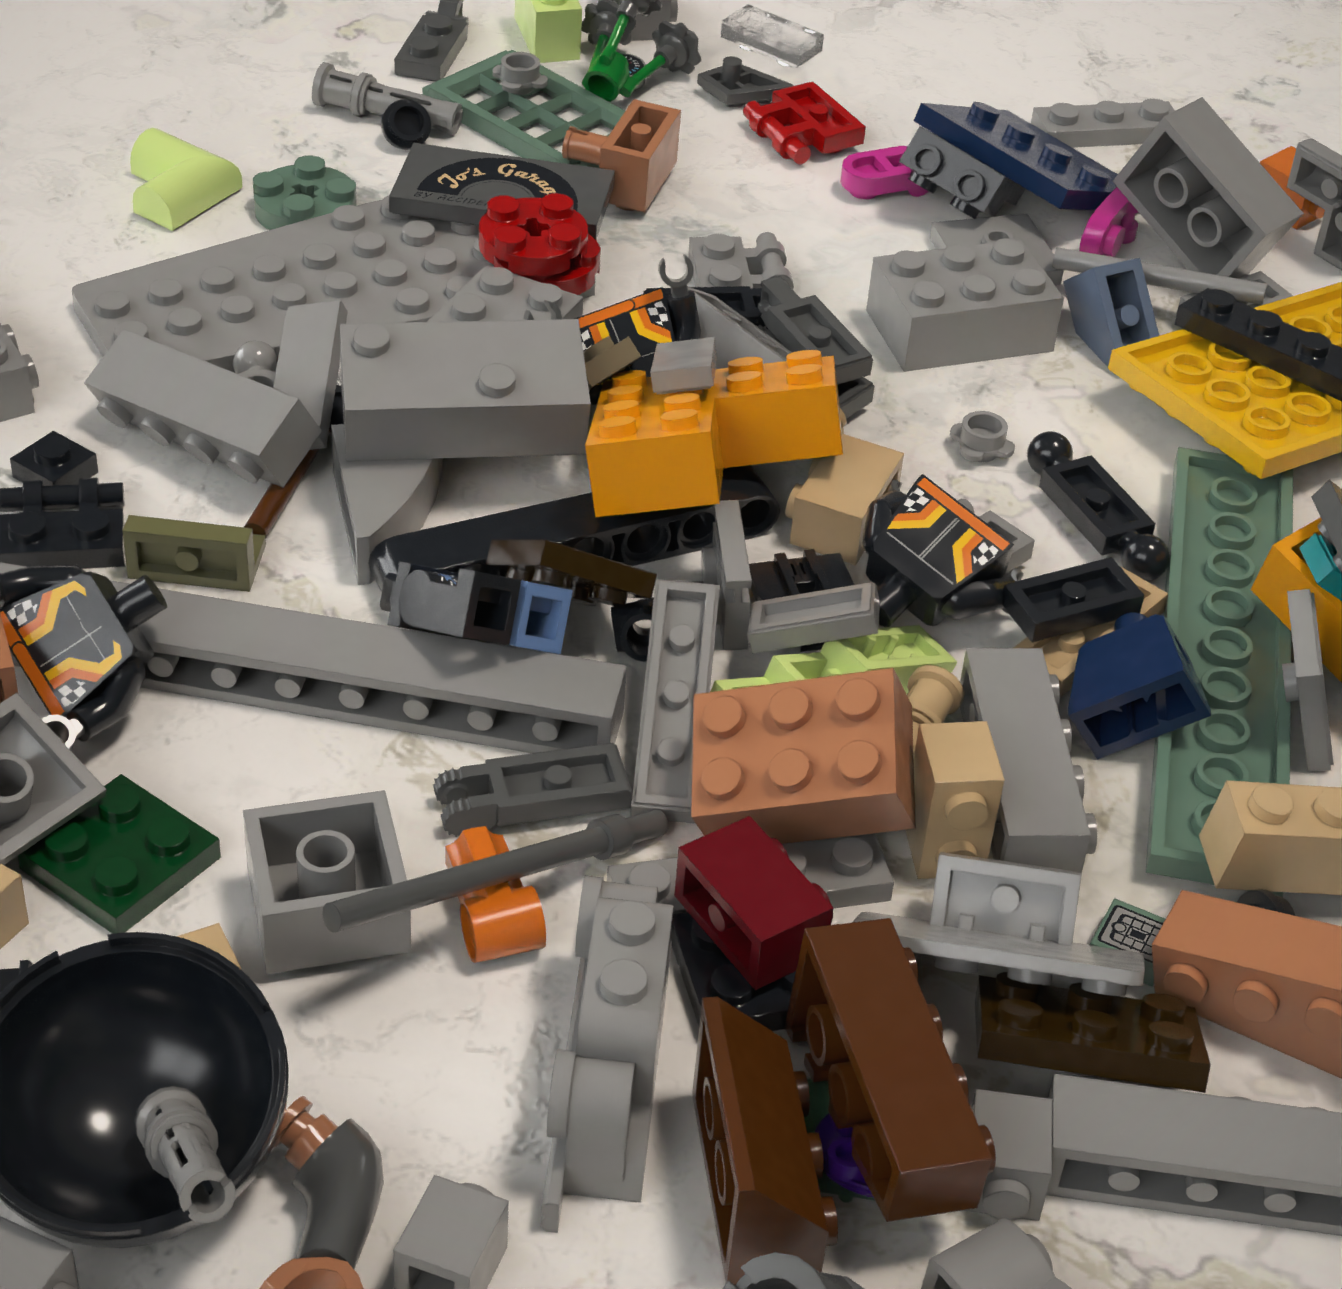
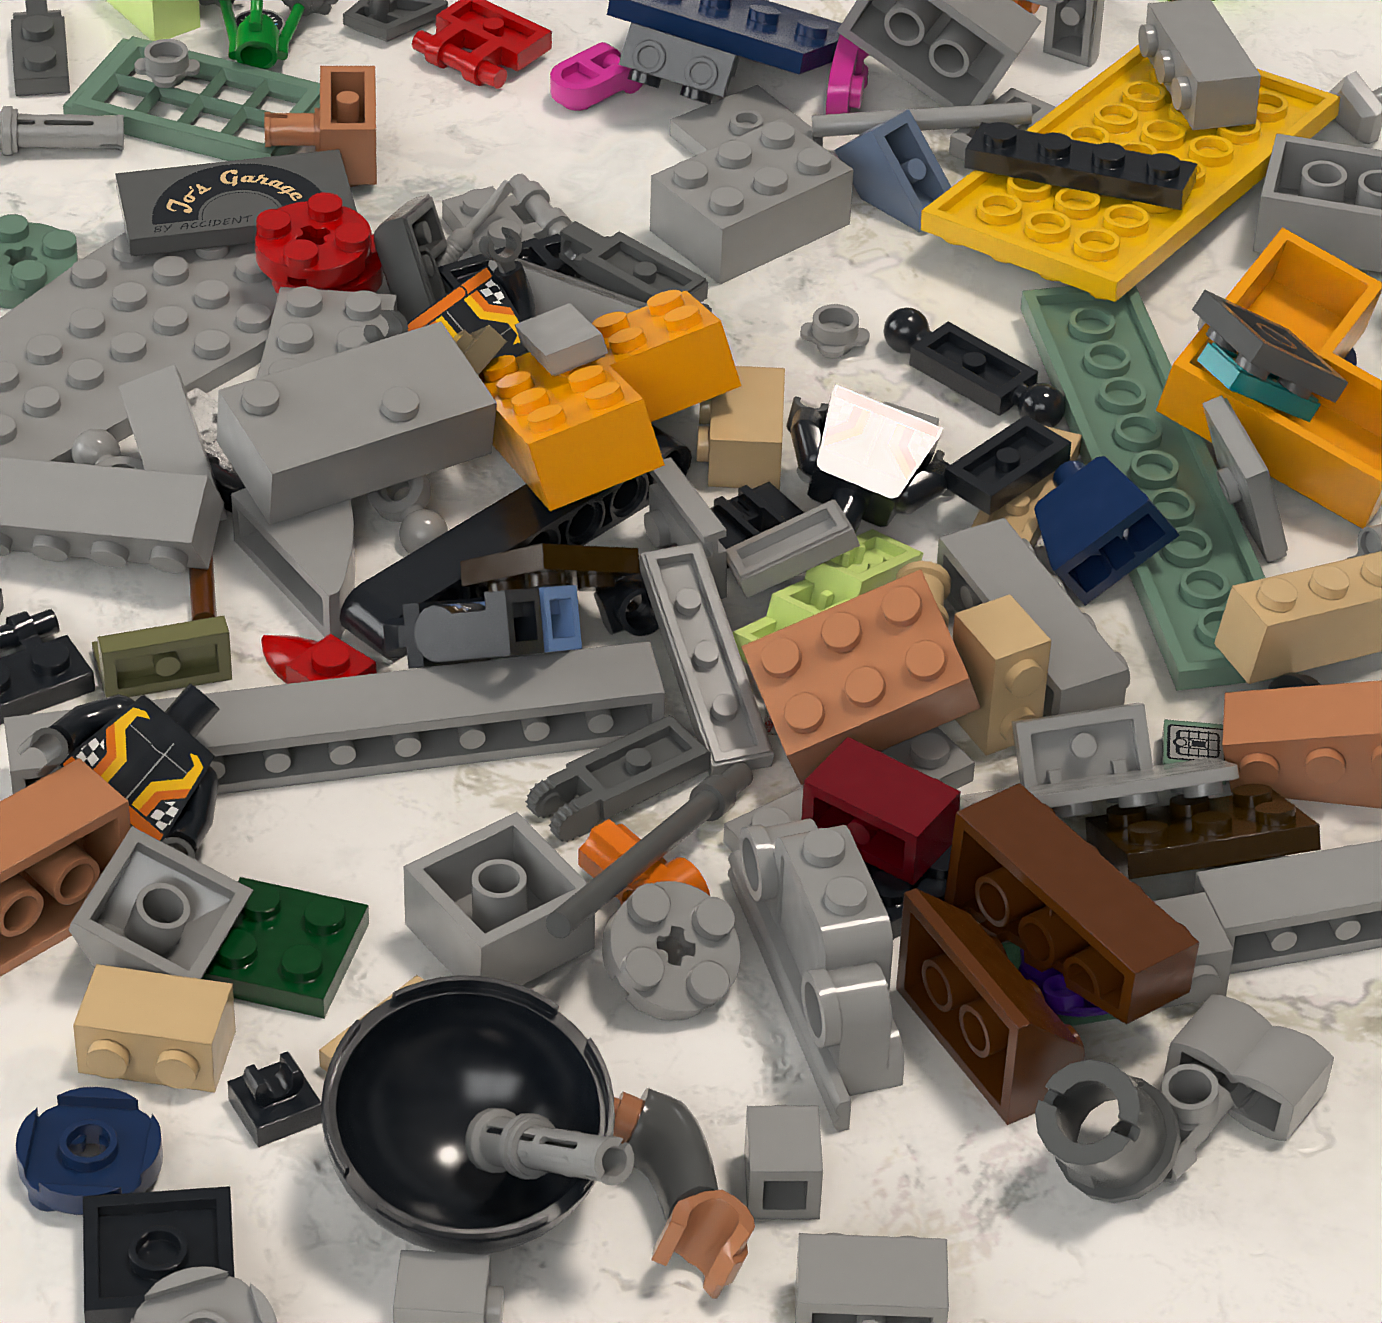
camera: 20 degrees left, 0 degrees up
(326, 594) = (305, 660): none -> red plate
(405, 124) = (76, 152): black plate -> none
(486, 1019) = (699, 924): none -> light grey plate
(494, 480) = (418, 524): none -> light grey plate
(618, 259) = (407, 253): none -> dark grey brick
(679, 269) = (462, 238): none -> light grey piece

